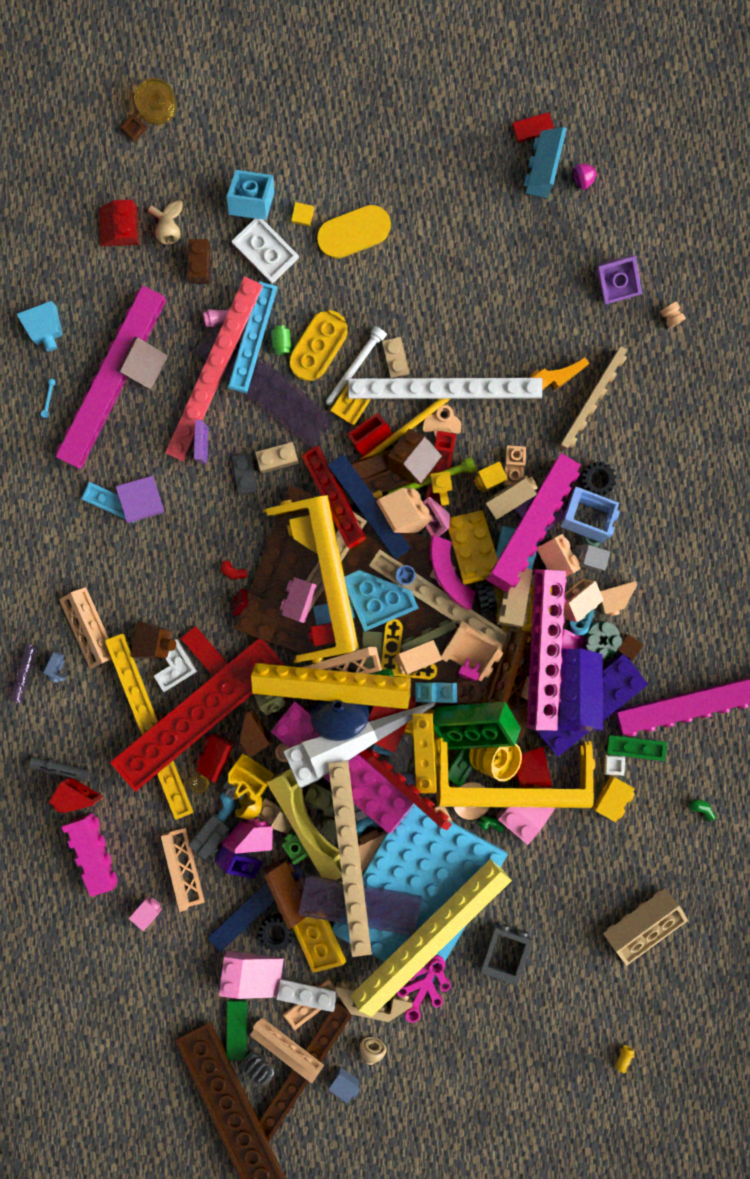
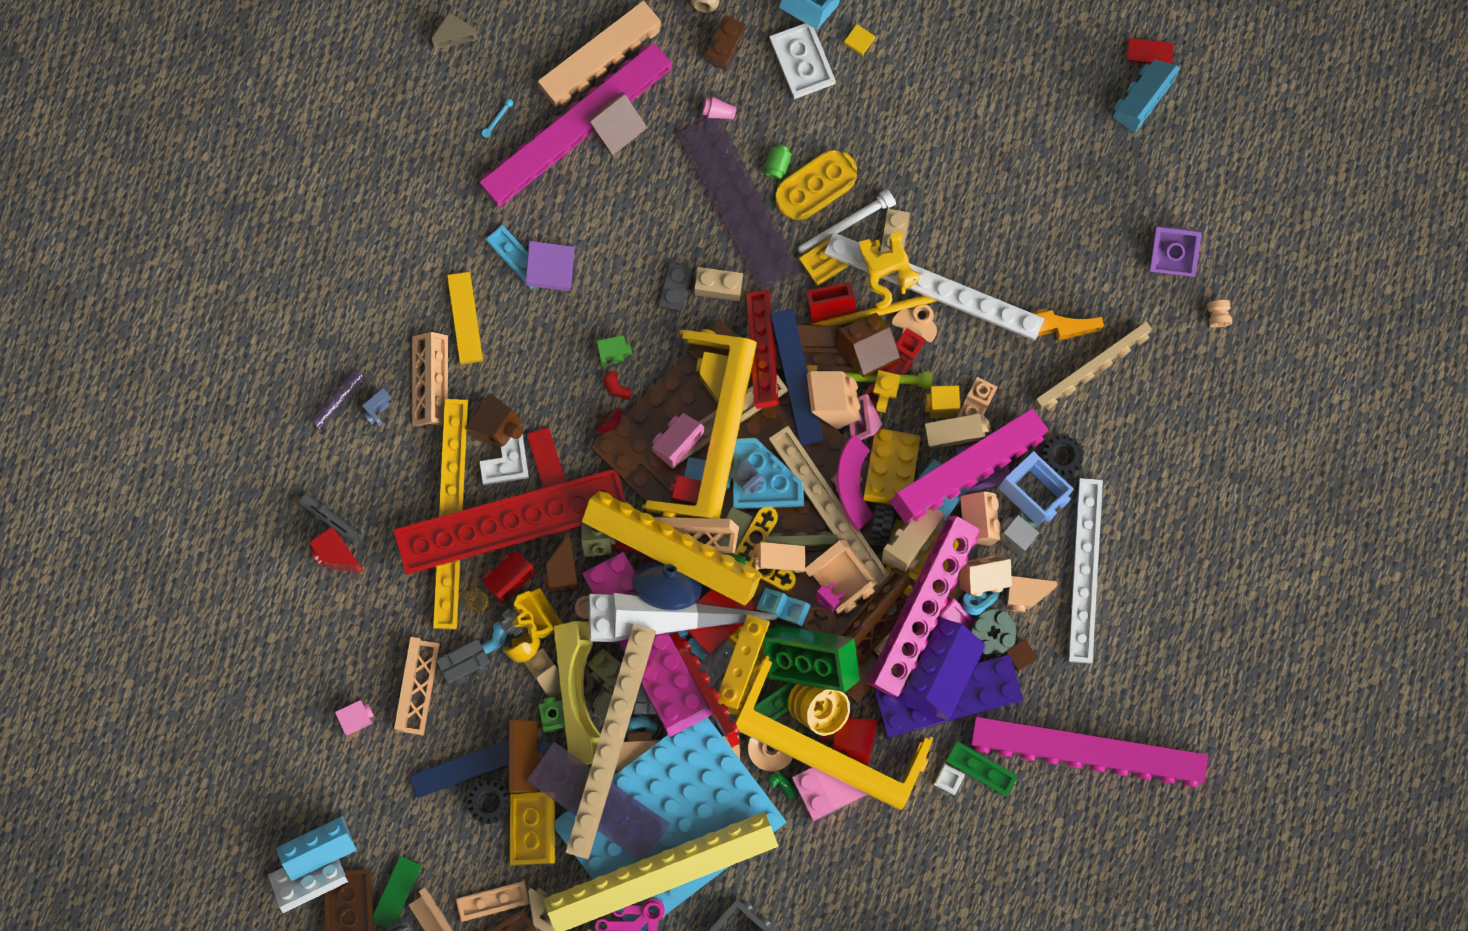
camera: 20 degrees right, 10 degrees down
(42, 324) = (527, 39): medium azure torso -> none
(91, 854) = (325, 625): dark pink wedge -> none
(93, 567) = (465, 318): none -> yellow tile
(105, 312) = (600, 54): none -> light nougat brick
(159, 1027) = (316, 848): none -> medium azure slope
(165, 1051) = (296, 892): none -> white plate
(201, 442) = (643, 232): medium lavender tile -> none
(214, 367) = (691, 162): coral plate -> none
(218, 544) = (613, 350): none -> bright green brick
(238, 863) = (481, 705): dark purple slope -> none
(250, 837) = (512, 678): slope -> none
(250, 975) = (440, 838): bright pink slope -> none
(252, 340) = (748, 146): medium azure tile -> none
(307, 995) = (493, 886): white plate -> none
(354, 231) = (907, 81): yellow tile -> none
(366, 605) = (747, 477): none -> sand blue bracket
(401, 387) = (887, 263): none -> yellow animal
(405, 575) = (804, 458): medium blue wheel -> none
(584, 175) = (1183, 125): dark pink cone -> none
(614, 798) = (932, 814): yellow brick -> none
(652, 561) = (1085, 571): none -> white plate
(704, 807) = (1030, 868): green arm -> none

